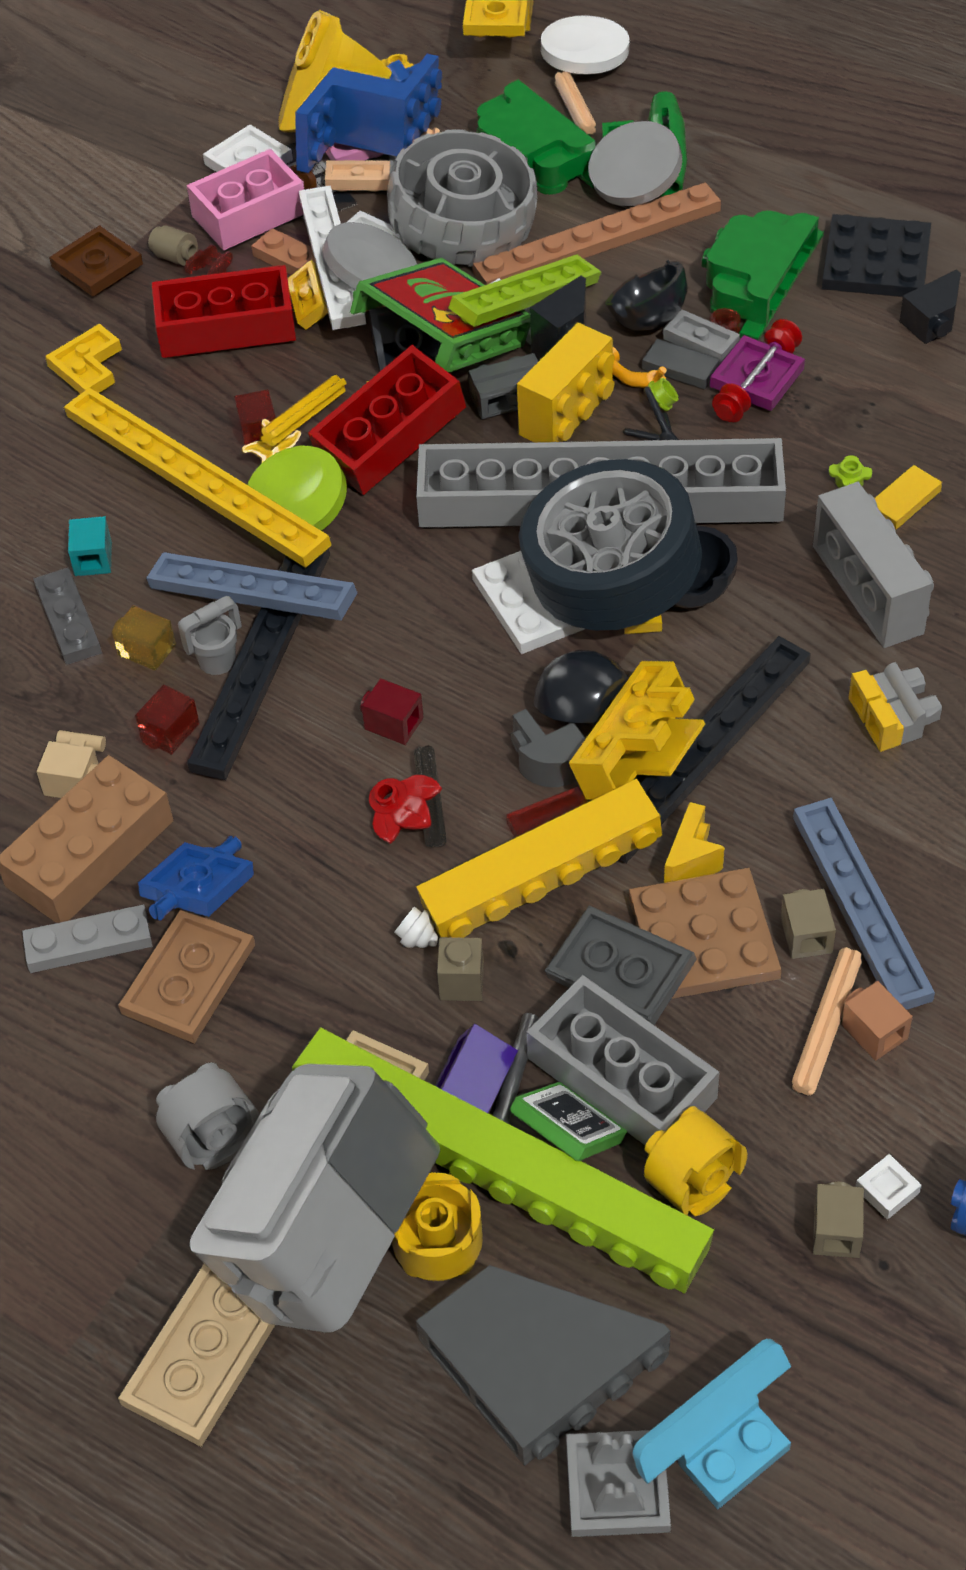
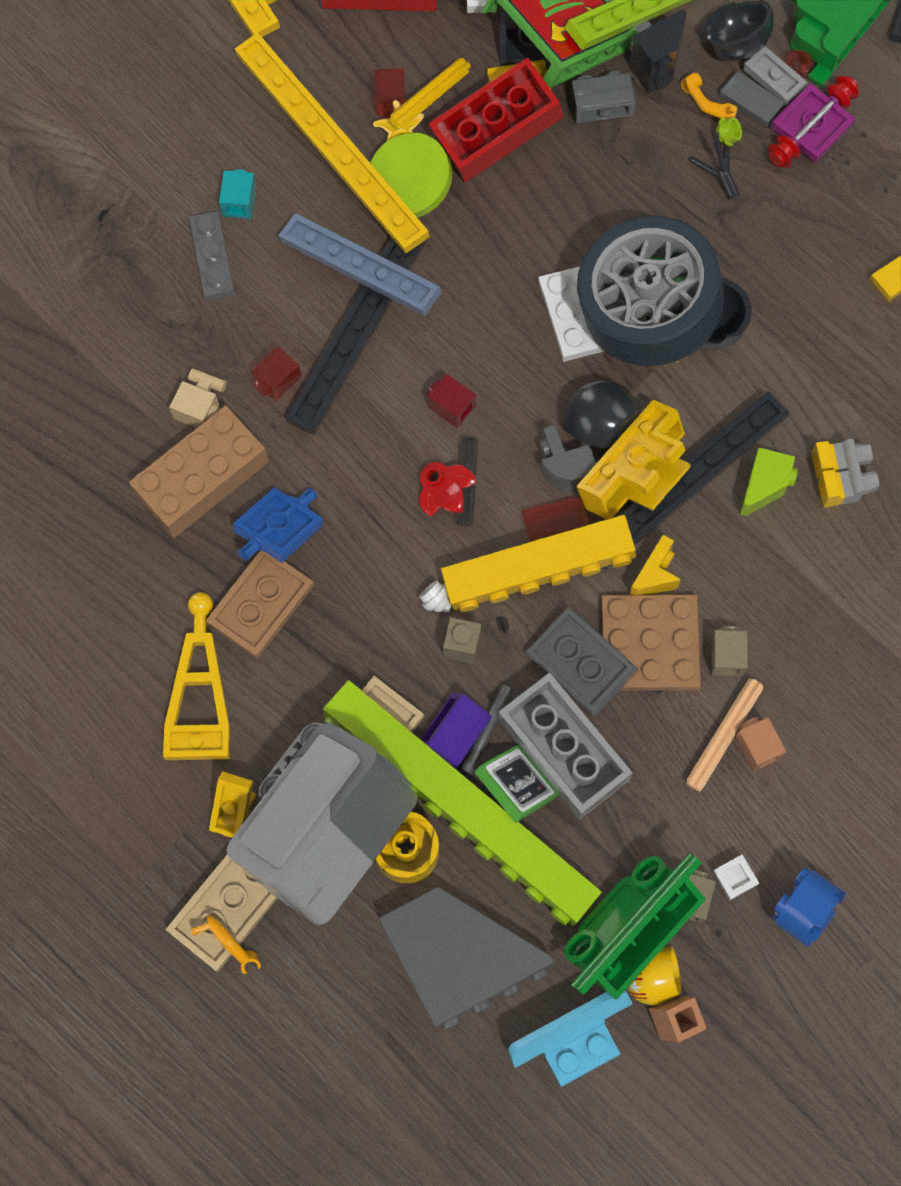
camera: 10 degrees right, 20 degrees up
(87, 938) = (190, 554): light grey plate -> none
(128, 1152) = (197, 741): none -> yellow plate
(143, 637) = (268, 292): clear yellow brick -> none
(184, 1205) = (231, 804): none -> yellow slope
(205, 1117) = (256, 729): light grey brick -> none
(210, 1394) = (228, 942): none -> light orange piece
(212, 635) = (322, 307): light grey piece -> none
(499, 480) = (592, 200): light grey brick -> none
(566, 385) = (649, 113): yellow brick -> none
(607, 1489) = (487, 1060): light grey plate -> none
(693, 1162) = (599, 835): yellow brick -> none
(769, 1253) = (633, 924): none -> green brick
(804, 727) = (768, 479): none -> lime slope
(809, 1326) = (659, 980): none -> yellow helmet
(850, 472) = (862, 247): lime plate -> none
(857, 1373) = (677, 1019): none -> nougat brick
(862, 903) = (774, 643): sand blue plate -> none
(872, 564) = (858, 341): light grey brick -> none

